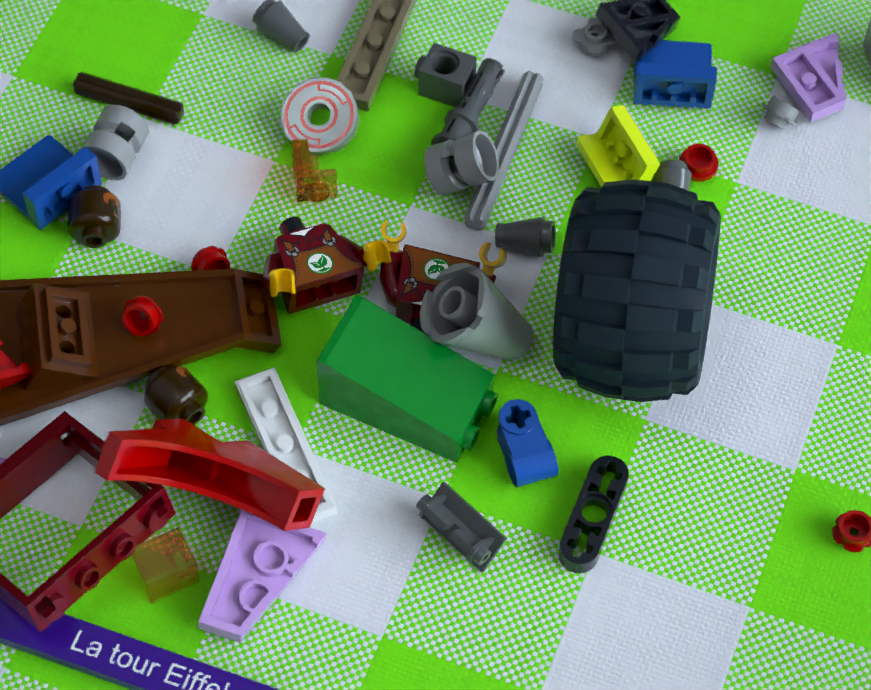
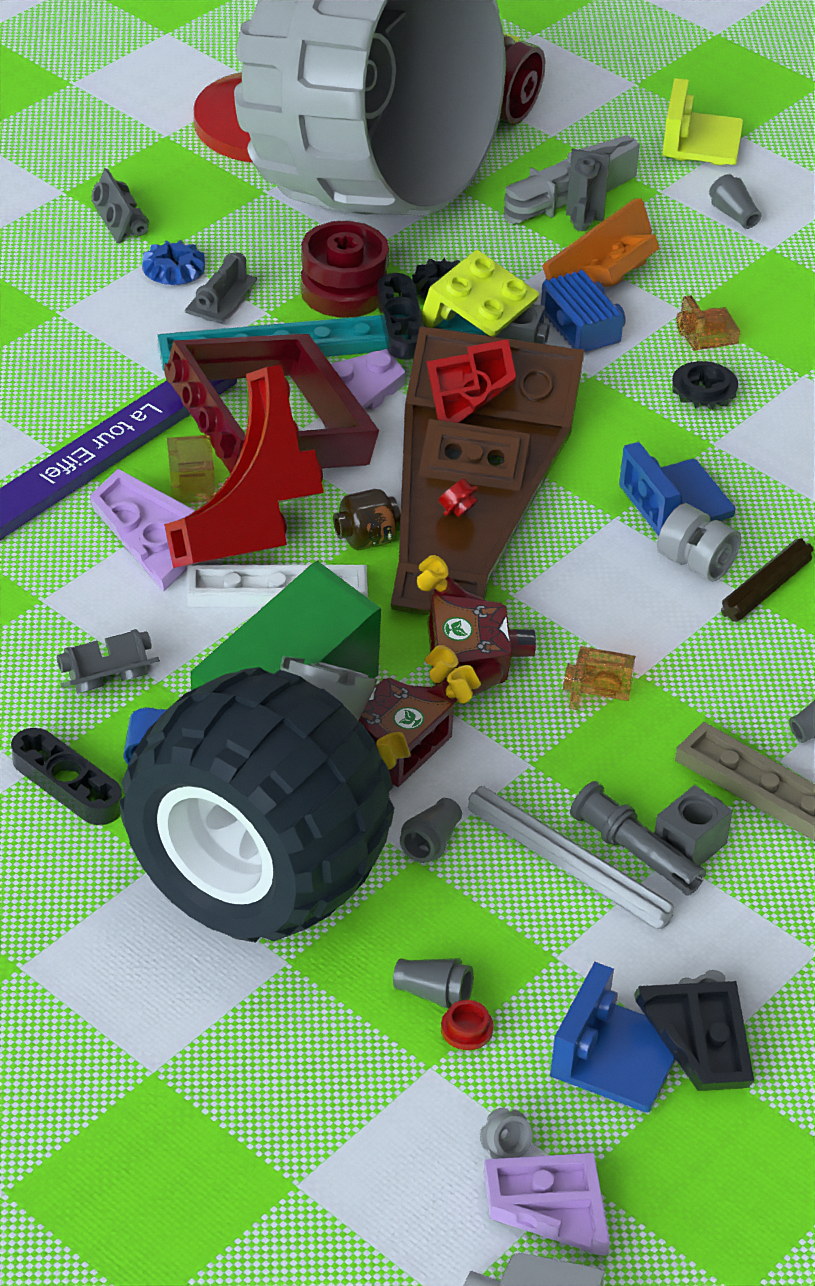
camera: 110 degrees right, 15 degrees down
(94, 215) = (612, 515): dark brown head -> none
(210, 259) = (515, 581): red plate -> none
(318, 94) = (673, 704): light grey tile -> none
(461, 163) = (544, 784): light grey wheel -> none
(618, 149) = (501, 936): neon yellow bracket -> none

